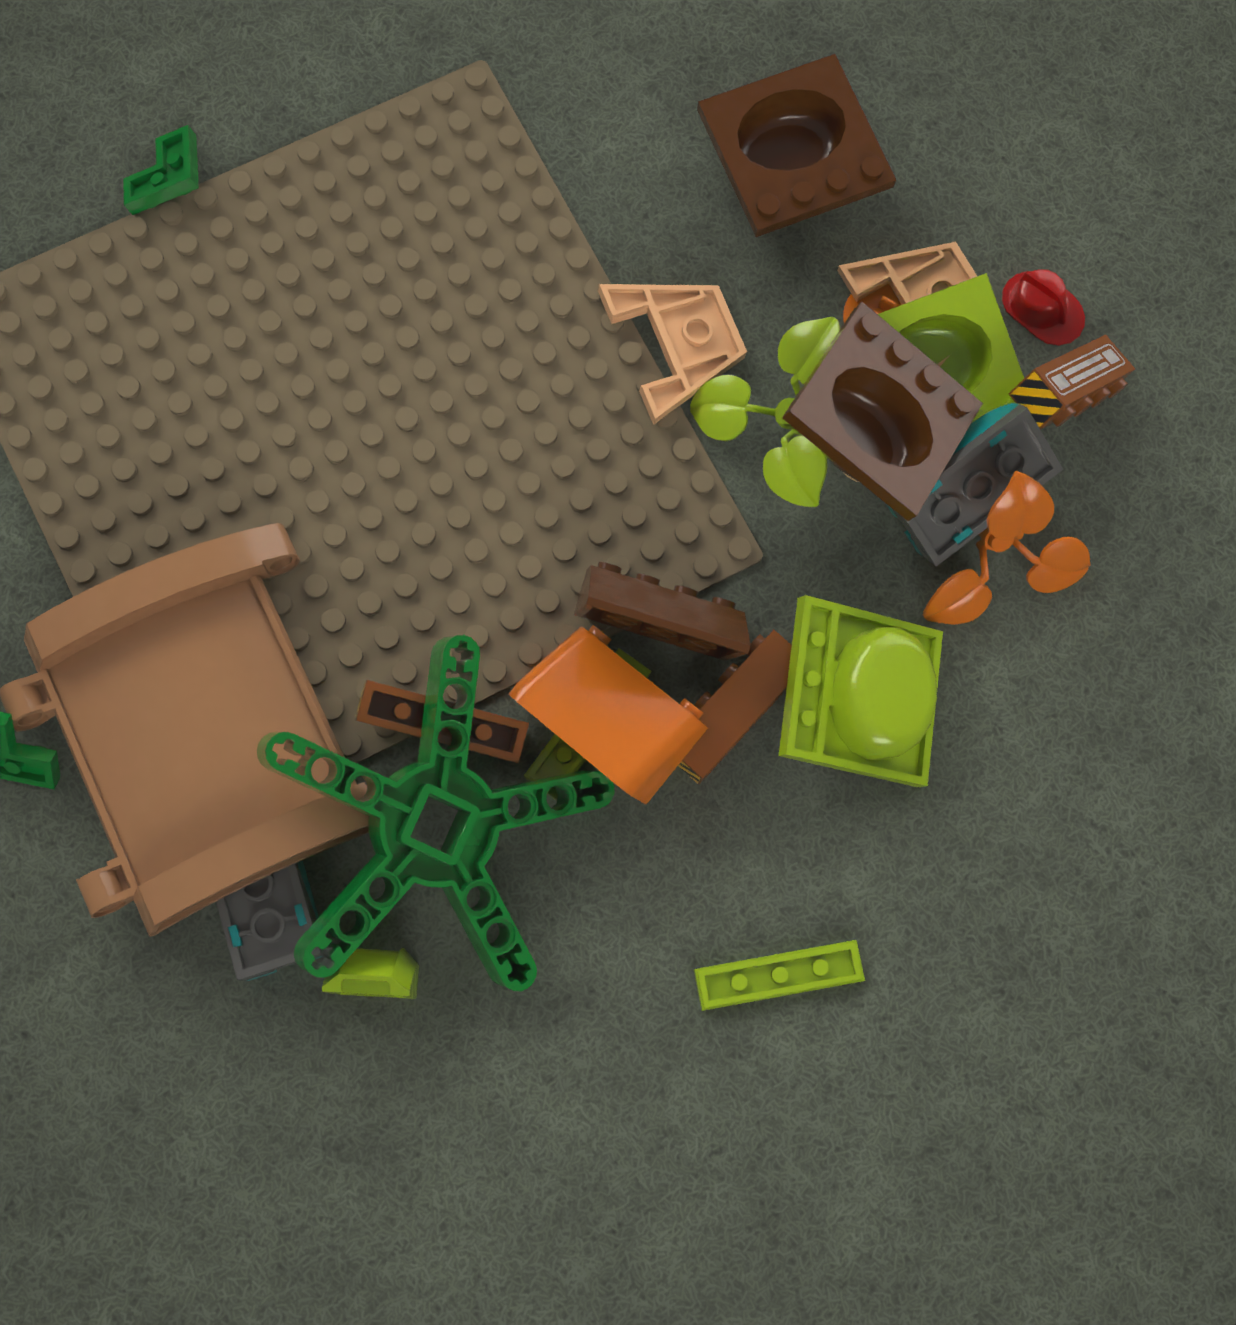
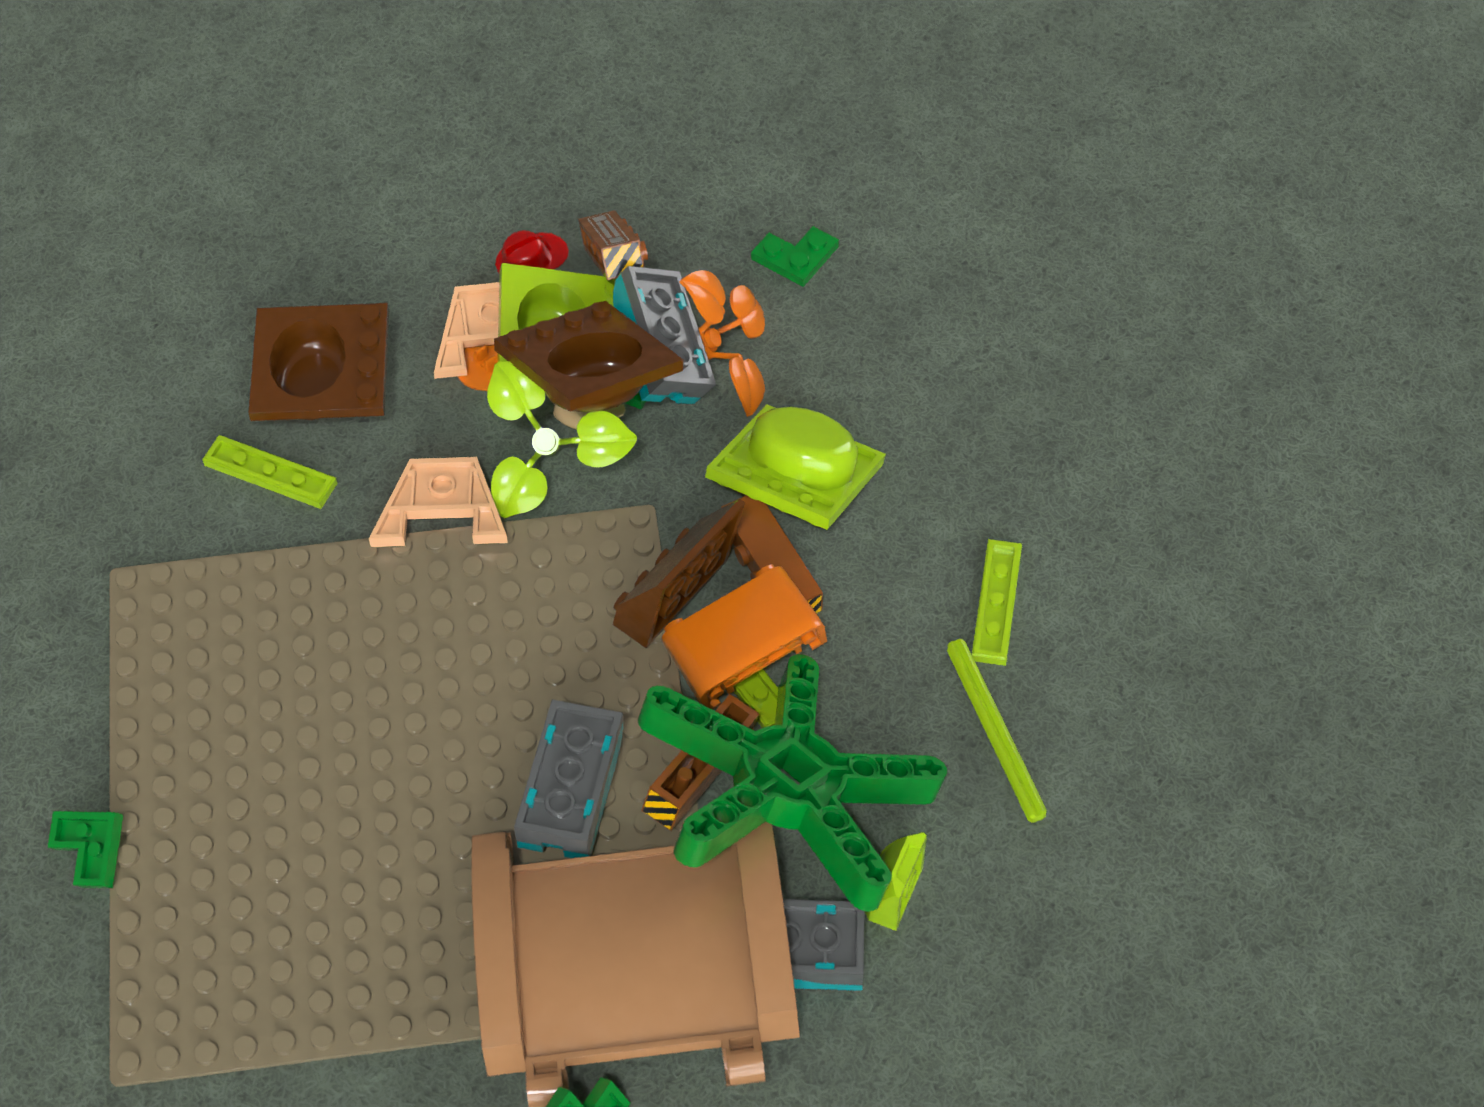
camera: 60 degrees left, 20 degrees down
(371, 595) = (569, 779): none -> dark grey piece
(609, 1026) = (996, 731): none -> lime axle
(656, 158) = (270, 471): none -> lime tile
(1160, 597) = (799, 261): none -> green plate

